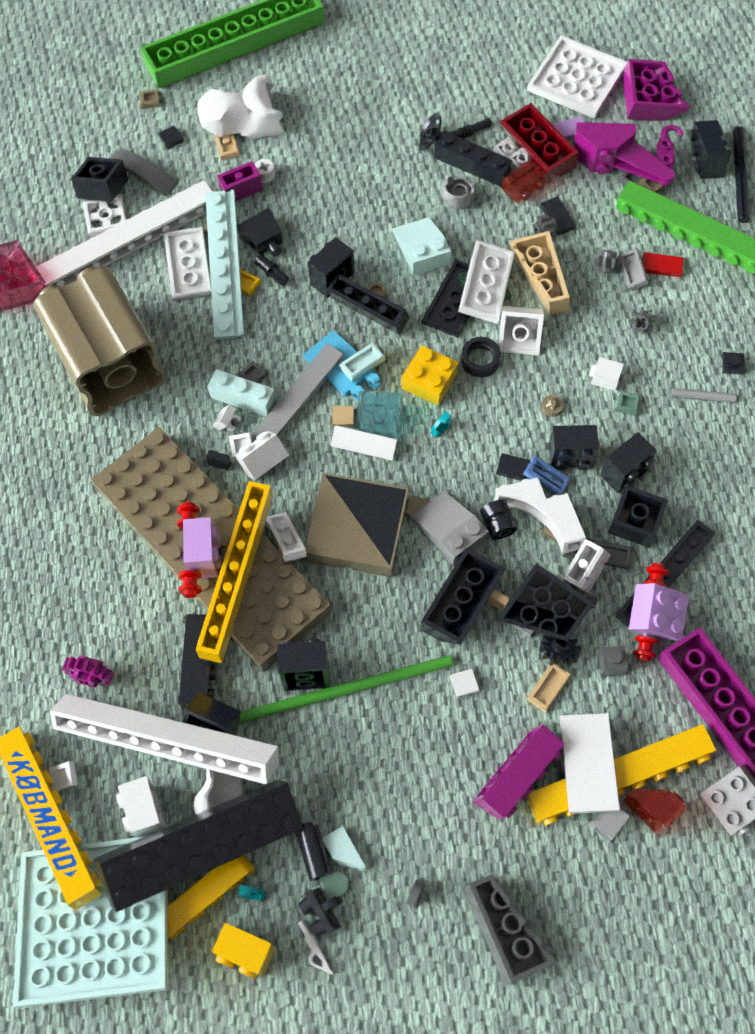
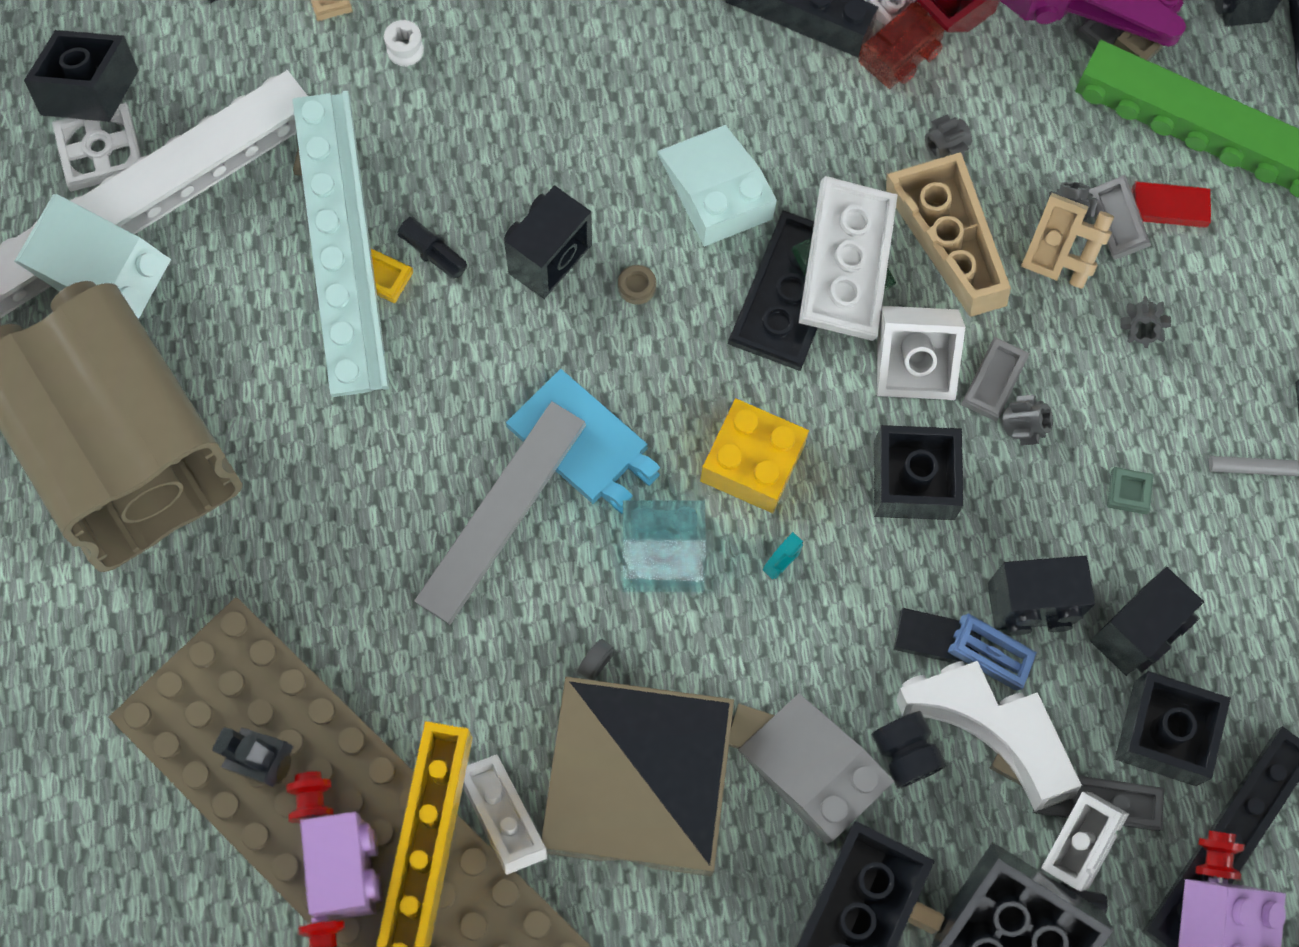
camera: 10 degrees left, 5 degrees up
(91, 252) = (81, 246): none -> light aqua slope
(146, 171) = (168, 51): dark grey slope -> none
(162, 496) = (254, 755): none -> black hips
(187, 263) = (267, 241): white tile -> none
(218, 460) = (358, 654): black tile -> none
(225, 417) = (363, 564): white tile -> none
(239, 441) = (400, 618): white plate -> none
(241, 393) = (393, 511): light aqua brick -> none
(243, 180) = (359, 68): magenta brick -> none
(253, 372) = (412, 467): dark grey tile -> none
(261, 454) = (442, 641): white brick -> none
(262, 233) = (408, 173): black torso -> none
(340, 468) = (595, 660): none -> dark grey tile
(343, 416) = (592, 546): tan tile -> none
(362, 362) = (622, 434): light aqua tile -> none
(364, 442) = (637, 600): white tile -> none
(368, 303) = (624, 313): black brick -> none
(458, 192) = (780, 73): light grey hair -> none
(478, 370) = (851, 382): black tyre -> none
(514, 386) = (918, 472): none -> black brick
(552, 405) = (989, 503): dark tan tile -> none
(556, 209) = (963, 101): black tile -> none
(560, 346) = (995, 379): none -> light grey tile
(575, 365) = (1028, 420): none -> dark grey gear
(597, 275) = (1056, 235): none -> tan plate
(606, 373) = (1087, 434): white brick -> none

